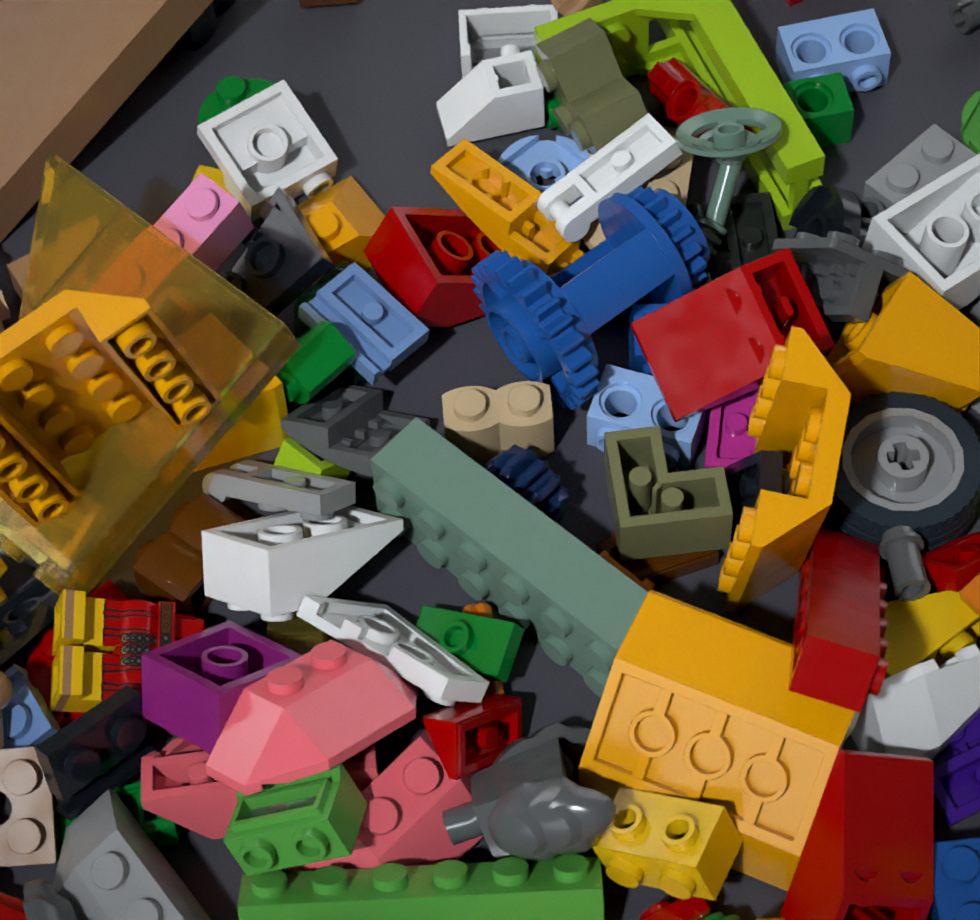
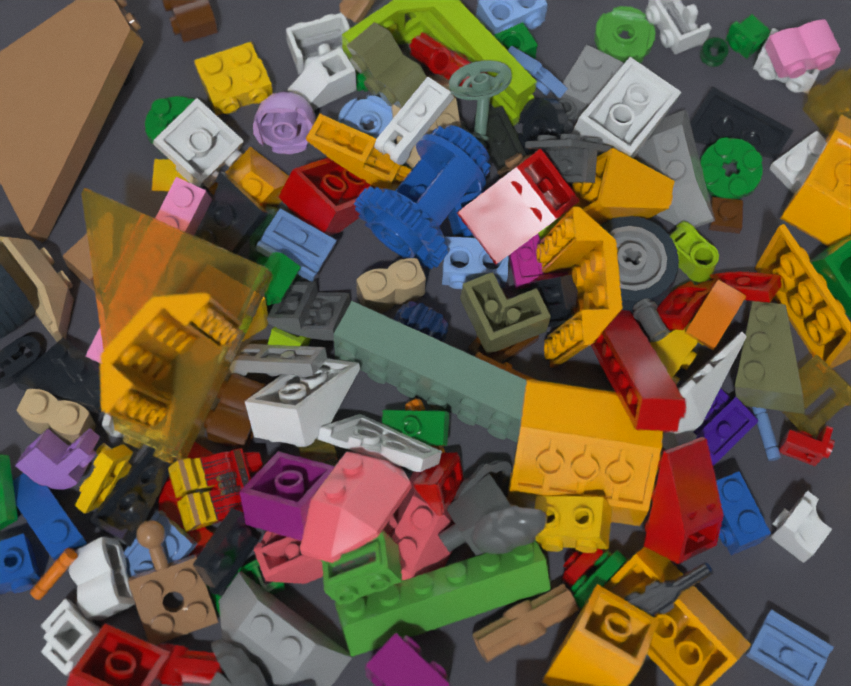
camera: 25 degrees left, 10 degrees up
(358, 73) = (233, 78): none -> yellow plate
(404, 143) = (284, 122): none -> lavender cylinder
(840, 157) = (545, 80): none -> medium blue plate

